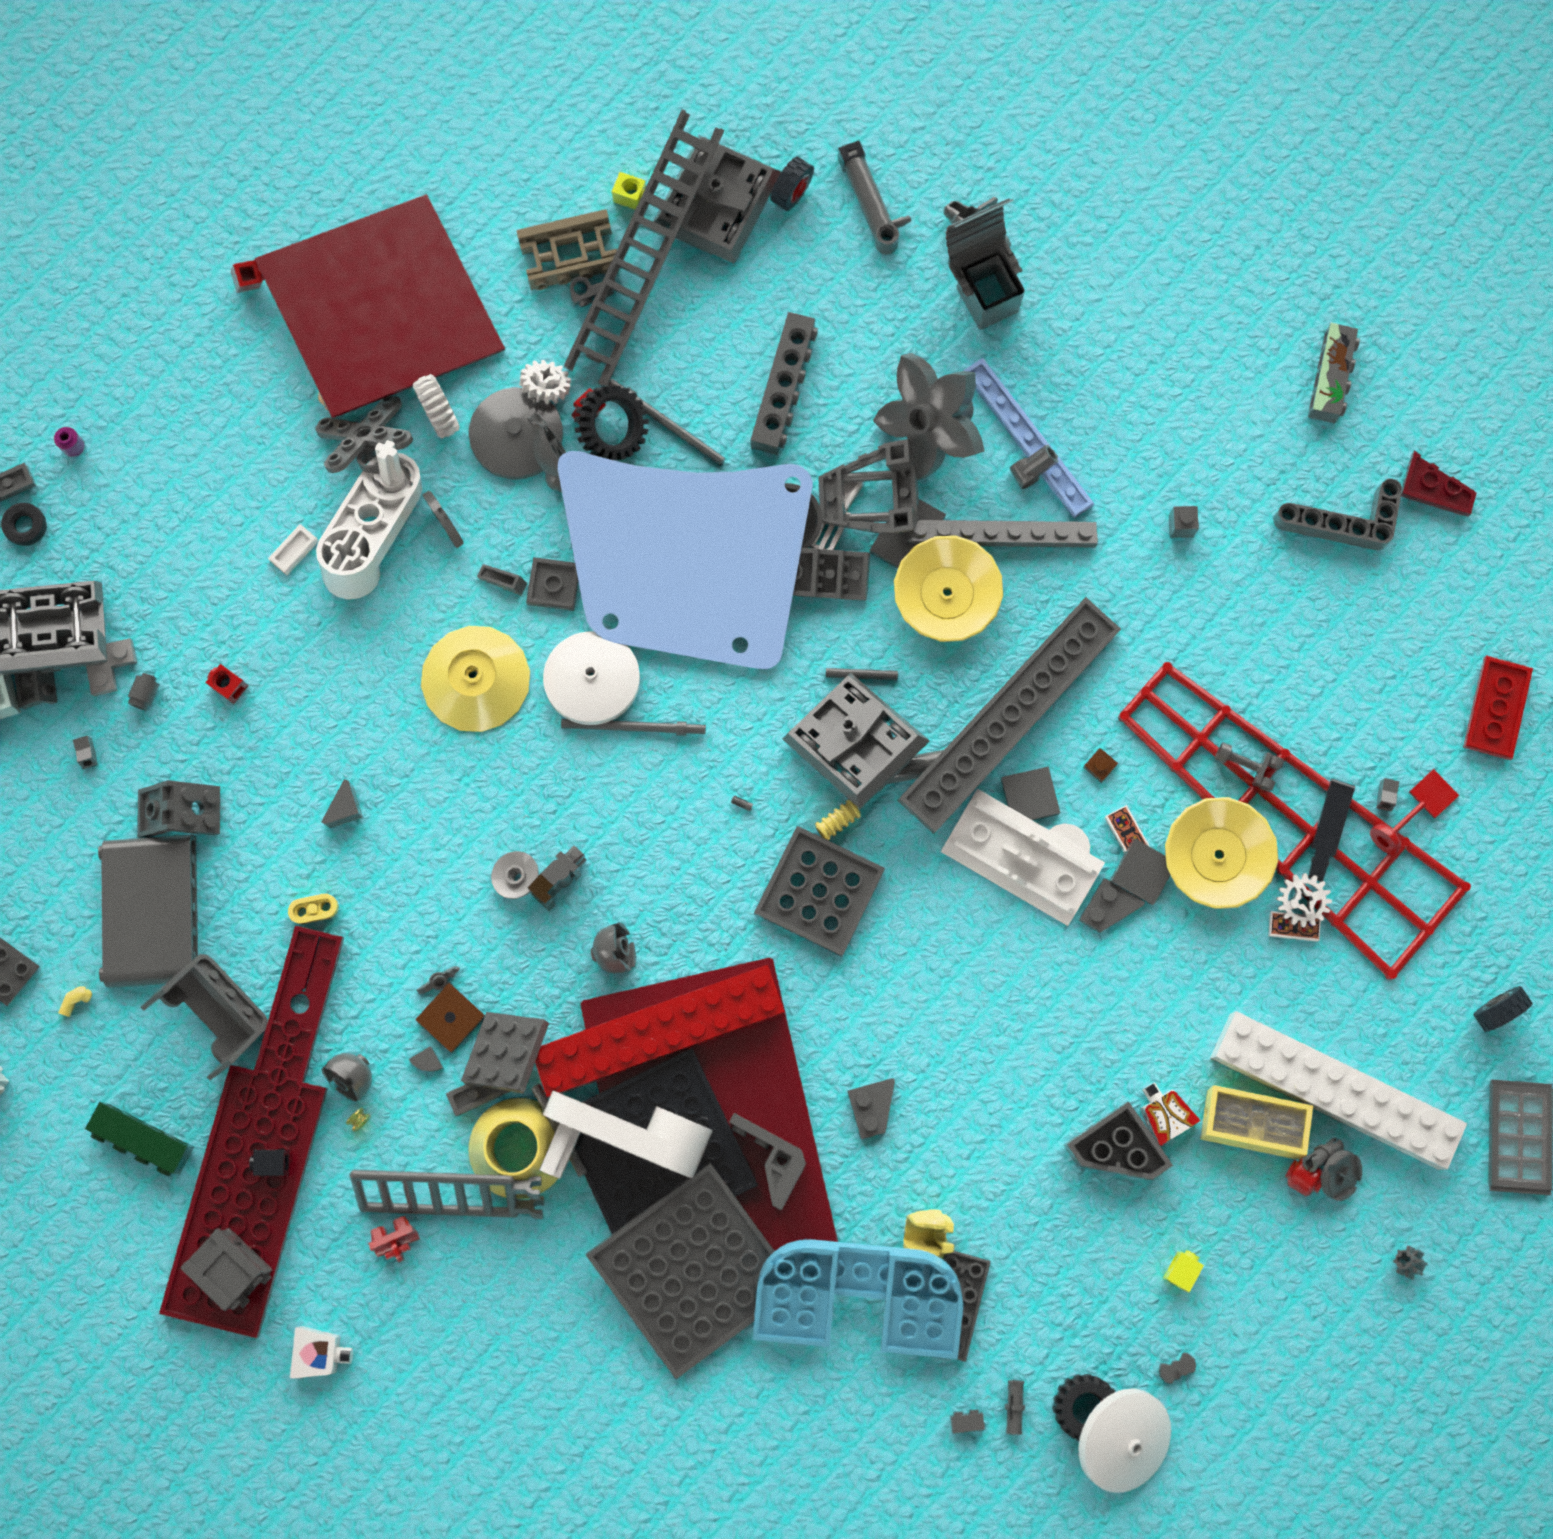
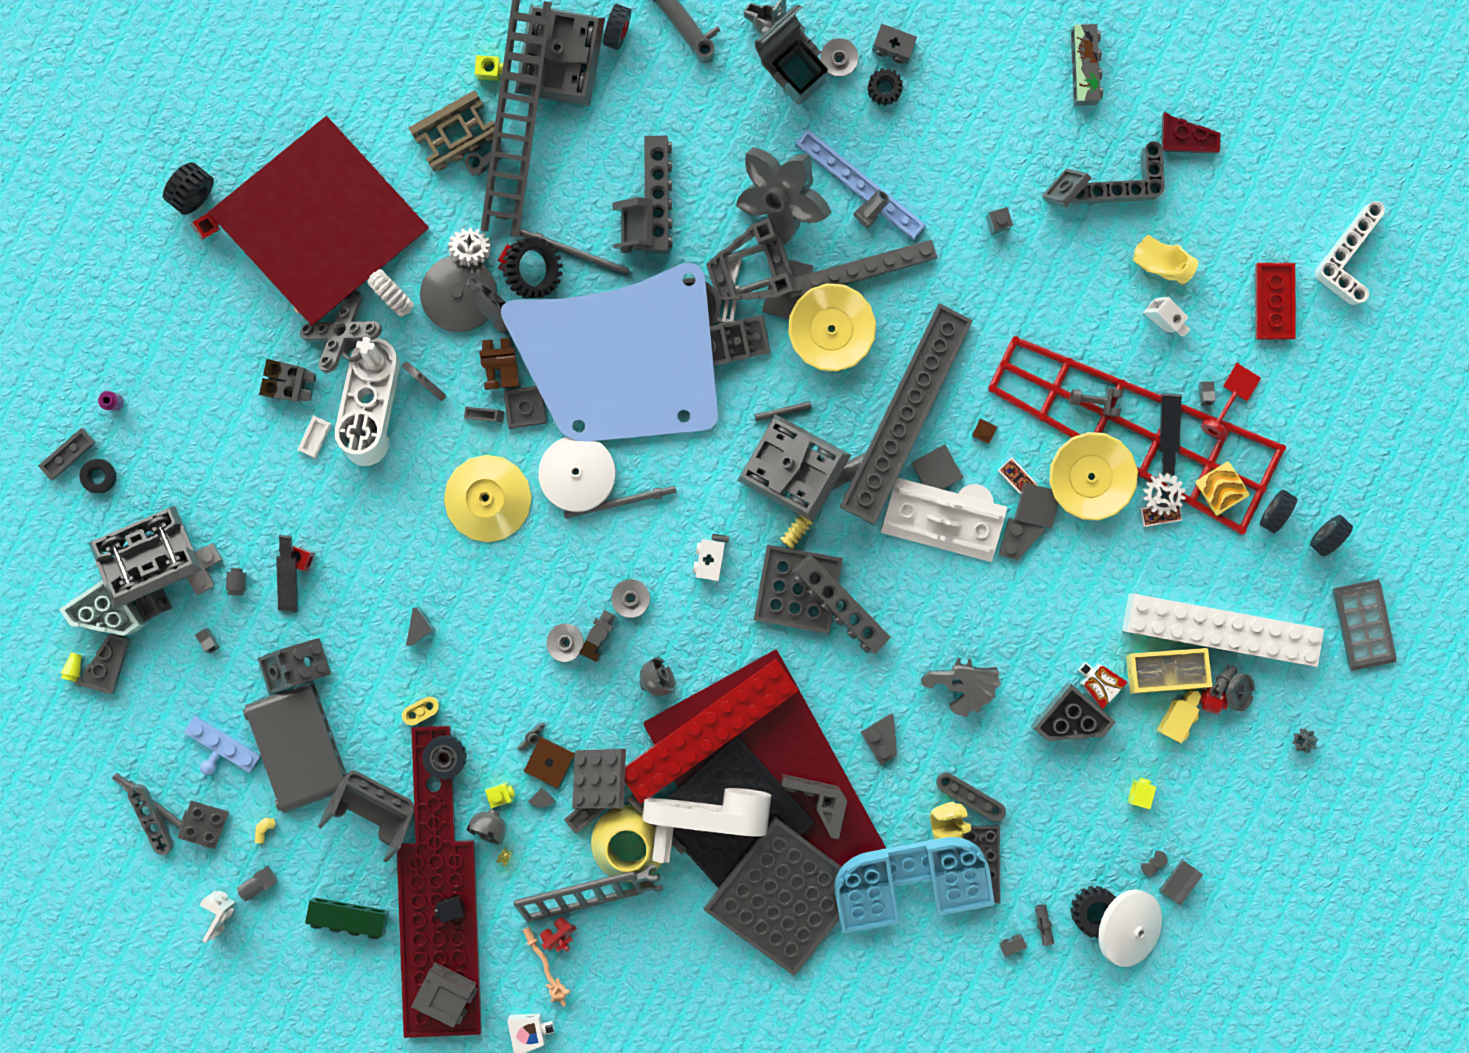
camera: 20 degrees left, 10 degrees up
(51, 1063) = (261, 881): none -> dark grey piece
(59, 883) = (221, 745): none -> light blue plate
(205, 700) = (287, 576): none -> black piece
(241, 227) = (188, 188): none -> black tyre
(281, 476) = (293, 382): none -> dark grey hips
(308, 967) = (452, 748): none -> black wheel
(370, 1309) = (557, 990): none -> light nougat piece
(377, 1040) = (500, 794): none -> neon yellow bracket
(542, 519) = (500, 359): none -> reddish brown hips
(607, 832) = (620, 600): none -> light grey dish
(720, 838) = (712, 570): none -> white brick
(748, 406) = (635, 224): none -> dark grey panel
(902, 972) = (877, 636): none -> dark grey brick
(964, 1212) = (971, 796): none -> dark grey plate
(1009, 1068) = (977, 685): none -> dark grey animal
(1047, 279) = (839, 48): none -> light grey dish
(1093, 323) = (890, 76): none -> black tyre
(1106, 279) = (887, 36): none -> dark grey brick
(1205, 1401) = (1181, 882): none -> dark grey panel
(1257, 1186) = (1180, 717): none -> light yellow hinge
(1274, 504) = (1066, 187): none -> dark grey tile
(1361, 687) = (1167, 316): none -> white torso
(1375, 623) = (1165, 260): none -> light yellow hair
(1379, 914) = (1222, 488): none -> slope
(1442, 960) = (1278, 511): none -> black wheel

